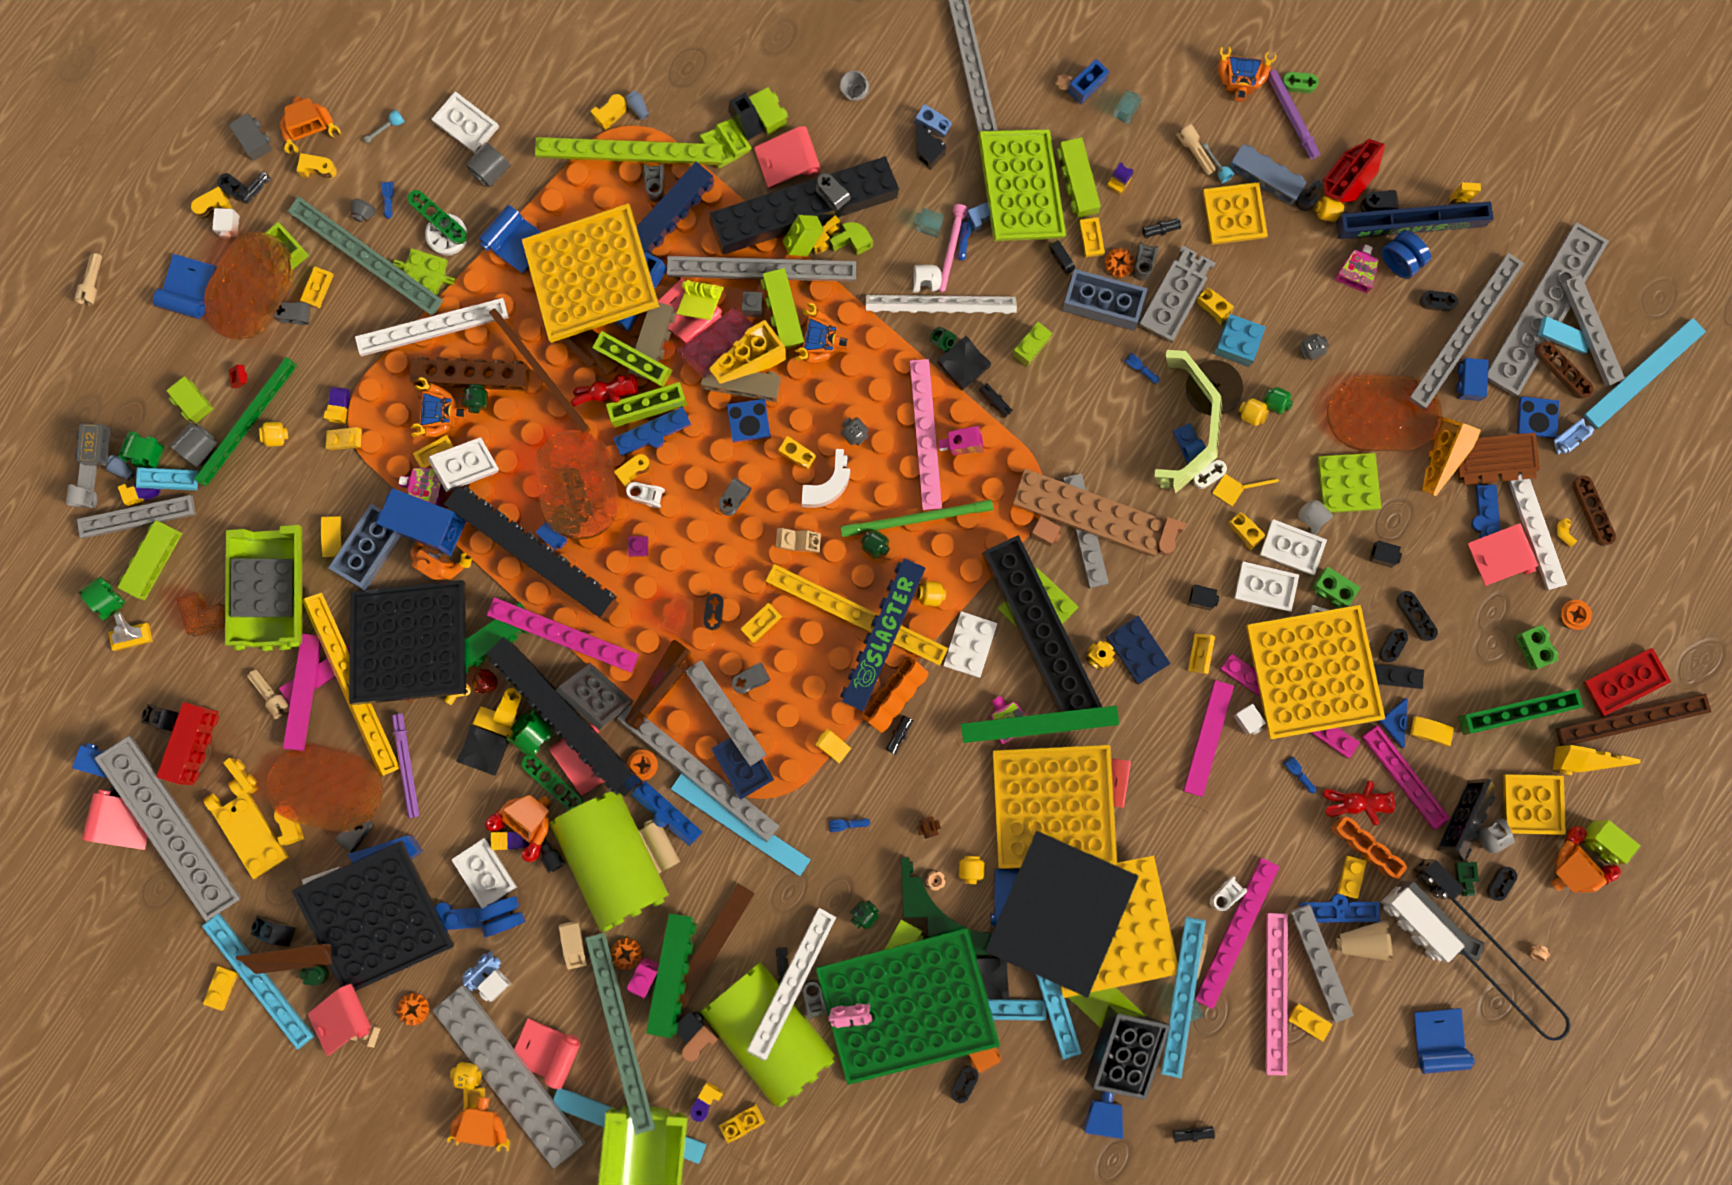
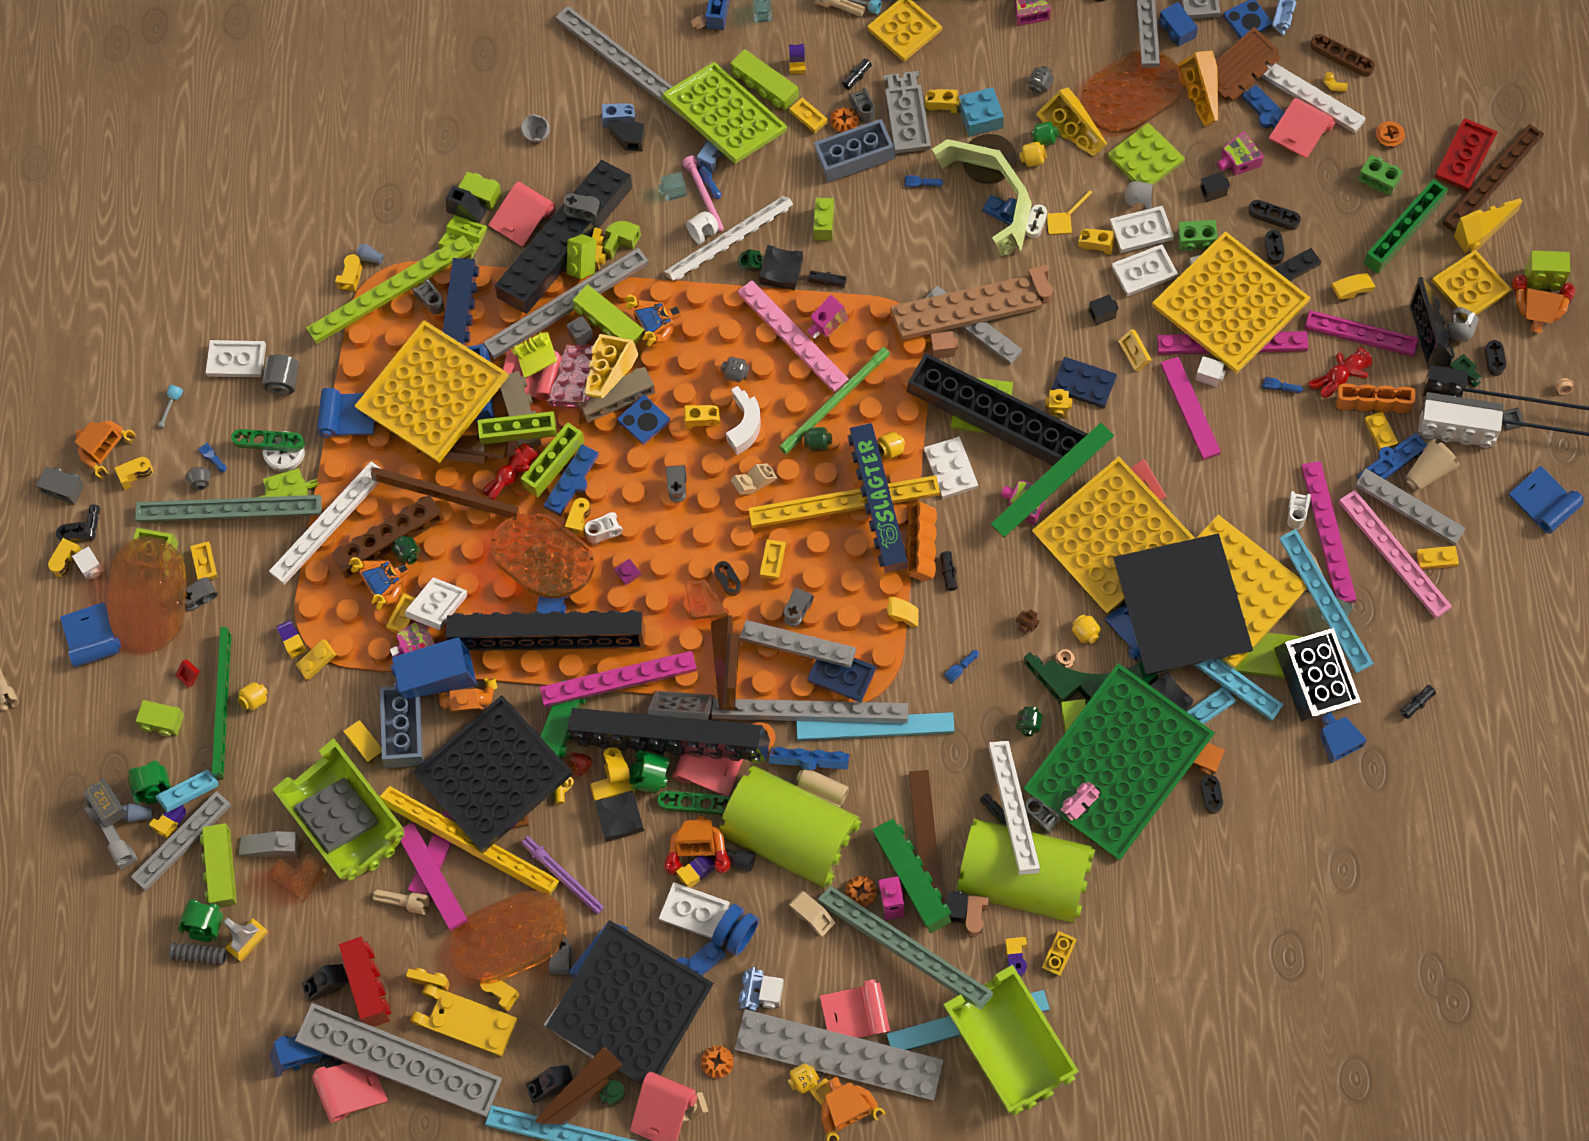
camera: 30 degrees left, 15 degrees down
(84, 621) = (197, 953): none -> dark grey piece
(194, 443) = (190, 747): dark grey piece -> none
(200, 571) = (270, 845): none -> light grey slope
(1061, 257) = (796, 144): black beam -> none
(1311, 406) = (1072, 121): none -> yellow wedge
(1396, 722) = (1322, 300): blue tile -> none
(1430, 541) = (1240, 155): none -> torso

